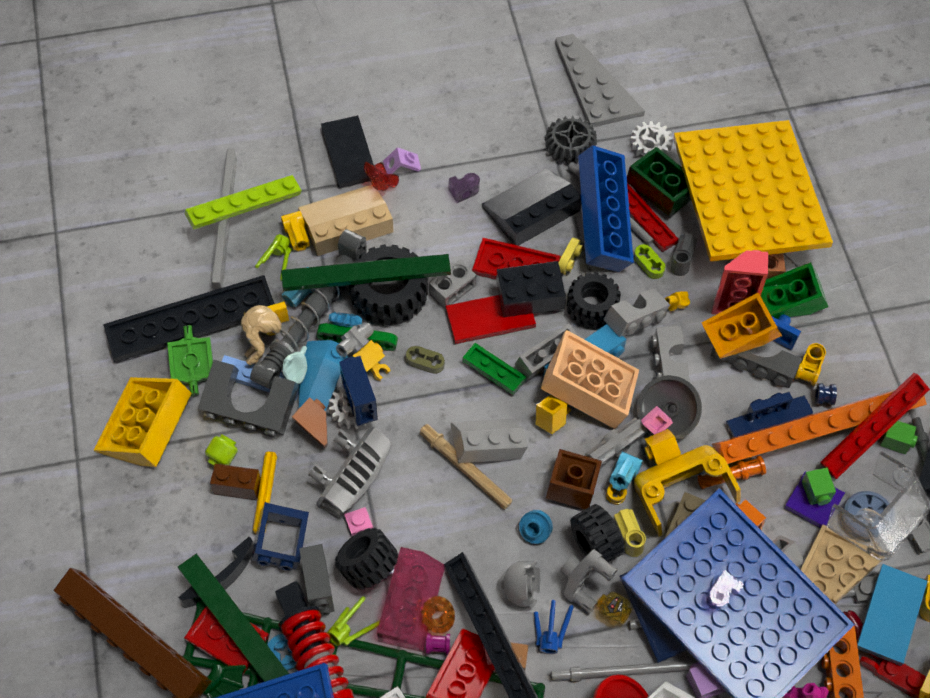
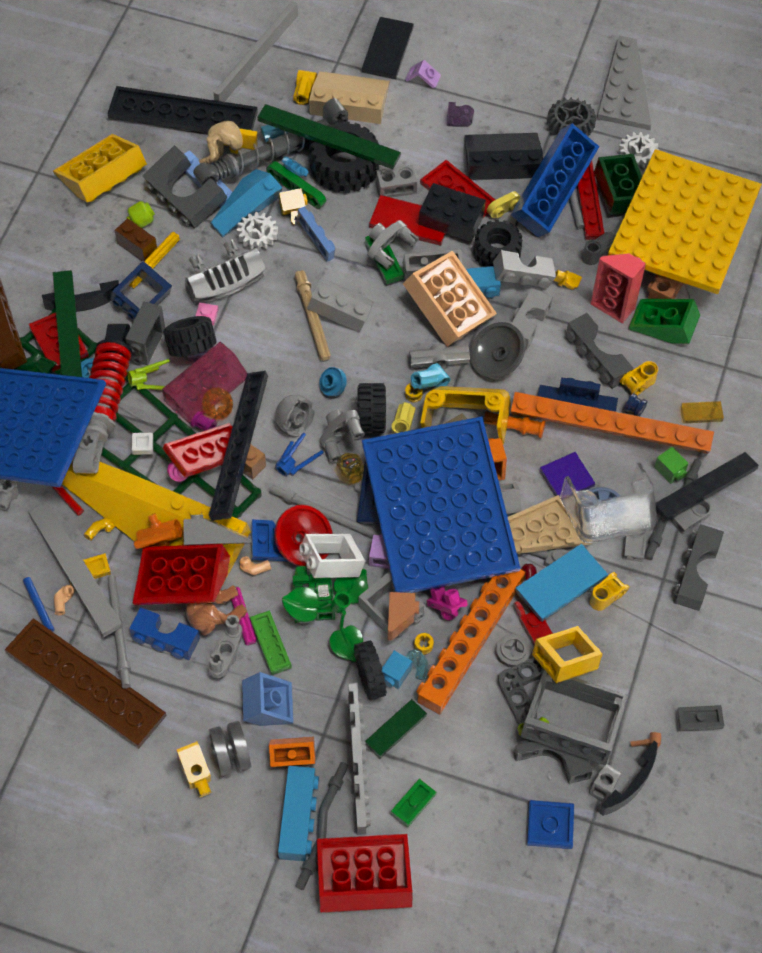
camera: 30 degrees right, 0 degrees up
(190, 359) = (160, 139): bright green plate -> none
(242, 202) = (276, 45): lime plate -> none
(278, 247) = (283, 92): lime plant -> none
(295, 366) = (231, 179): light aqua piece -> none
(313, 420) = (220, 225): nougat slope -> none
(354, 339) = (287, 181): light grey axle -> none
(358, 390) = (262, 216): dark blue window -> none
(379, 178) = (397, 76): clear red plate -> none
(413, 378) = (316, 233): none -> medium blue plate
(425, 359) = (334, 228): olive beam -> none
(484, 348) = (384, 236): none -> light grey connector
(551, 414) = (403, 310): yellow brick -> none
(573, 479) = (385, 362): reddish brown slope -> none
(647, 262) = (571, 240): lime beam -> none
(656, 421) = (479, 354): bright pink plate -> none
(662, 447) = (471, 375): yellow brick -> none
(720, 591) = (430, 485): clear purple leg -> none
(741, 327) = (598, 318): light orange slope -> none
(789, 334) = (632, 340): blue tile -> none
(818, 486) = (574, 464): bright green brick -> none
(875, 425) = (653, 443): red tile -> none
(883, 368) = (702, 412): none -> clear yellow tile

